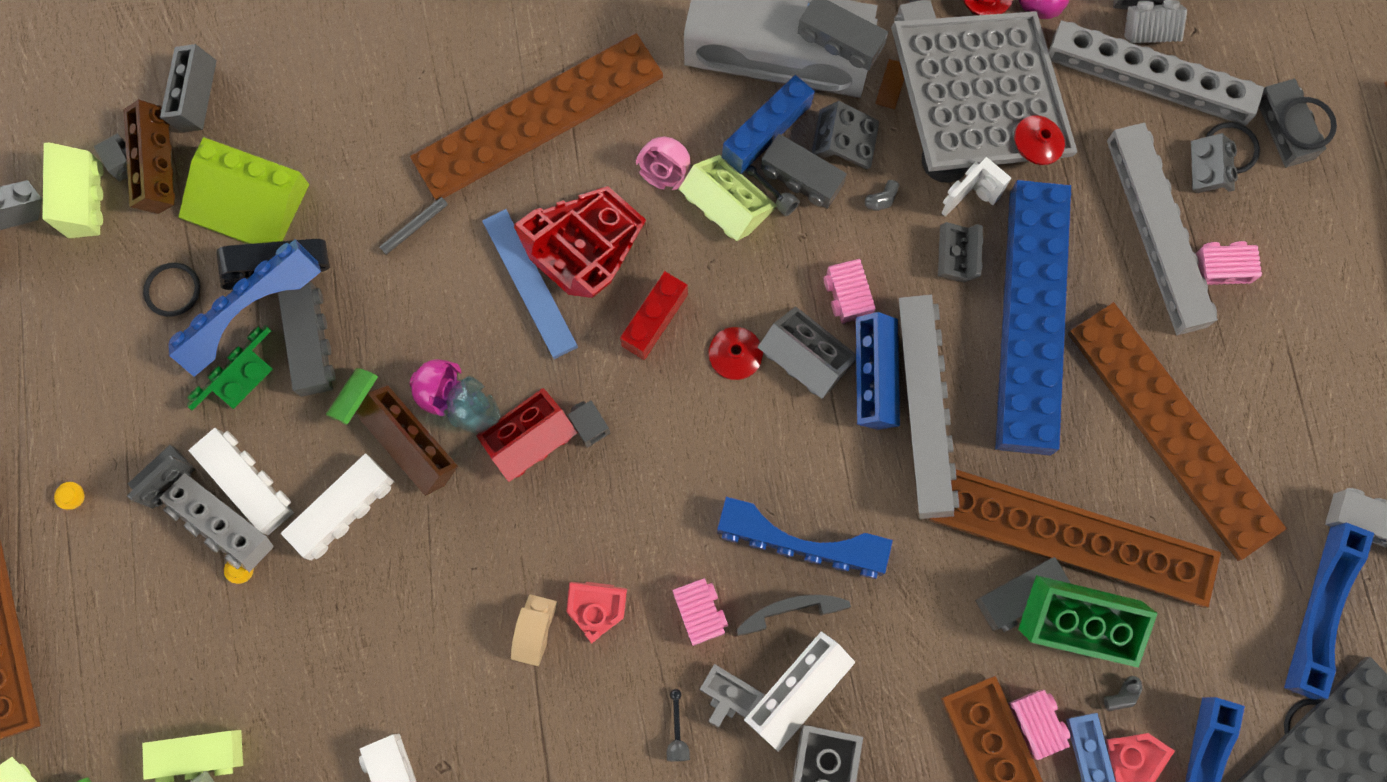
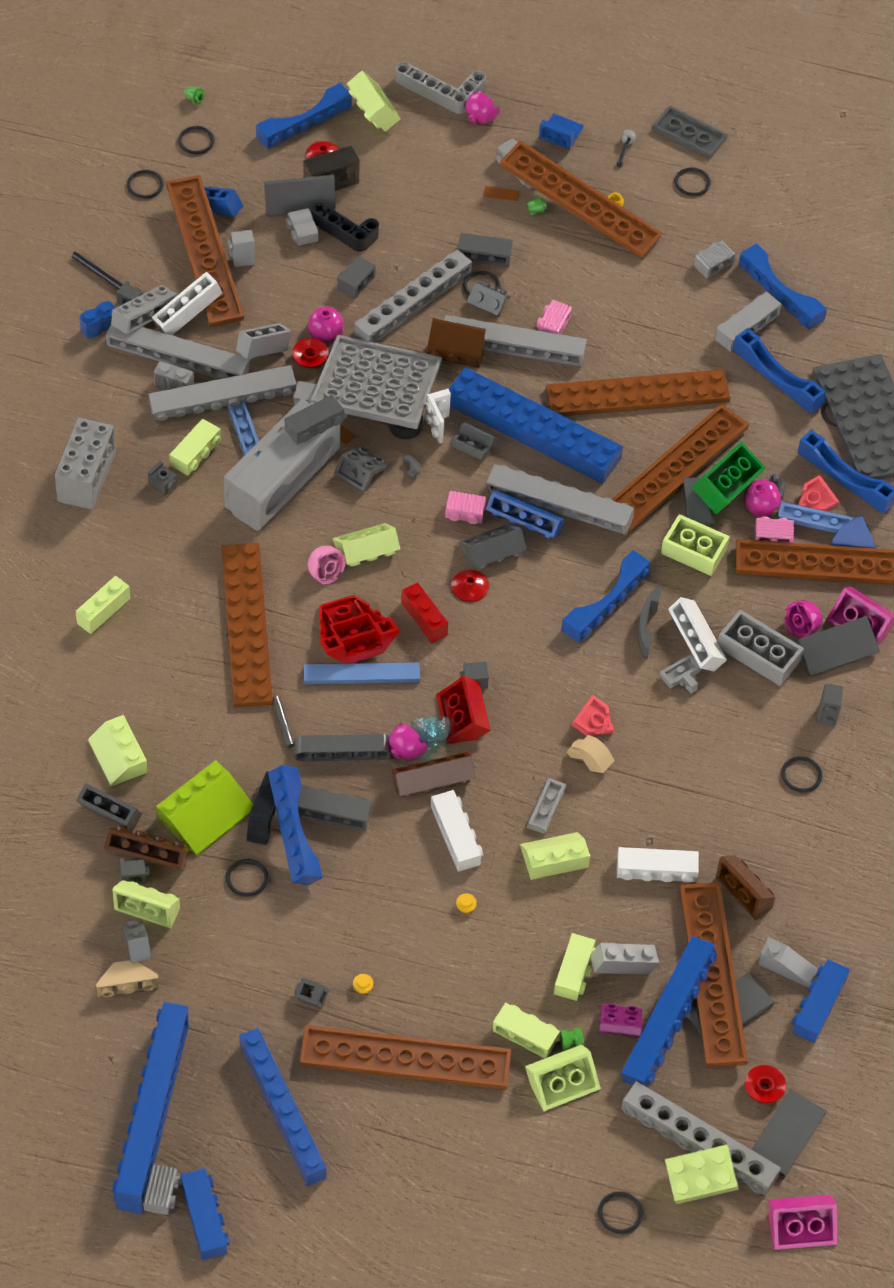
camera: 70 degrees left, 20 degrees down
(24, 440) = (318, 996): none -> dark grey brick
(71, 733) = (526, 1030): none -> yellowish green brick
(159, 477) = (381, 922): dark grey bracket -> none
(216, 522) = (431, 897): light grey brick -> none
(238, 376) = (332, 857): green bracket -> none
(241, 480) = (408, 878): white brick -> none
(282, 65) = (118, 751): none -> yellowish green slope
(351, 395) = (387, 790): bright green slope -> none
(359, 650) = (555, 855): none -> yellowish green slope
(400, 309) = (342, 747): none -> dark grey beam
(434, 606) = (546, 806): none -> light grey tile
(677, 749) = (701, 712): hinge -> none
(699, 611) = (624, 666): bright pink brick -> none
(770, 120) = (331, 500): blue brick -> none
(785, 202) = (386, 516): hinge -> none
(802, 171) = (372, 497): dark grey brick -> none
(950, 622) = (695, 545): none -> yellowish green brick
(1033, 145) = (425, 370): red dish -> none
(1087, 683) = (762, 498): none -> dark pink cylinder
(1106, 158) = (457, 342): none -> reddish brown slope
(1155, 22) = (382, 281): light grey brick -> none
(1326, 108) = (489, 252): black tyre -> none

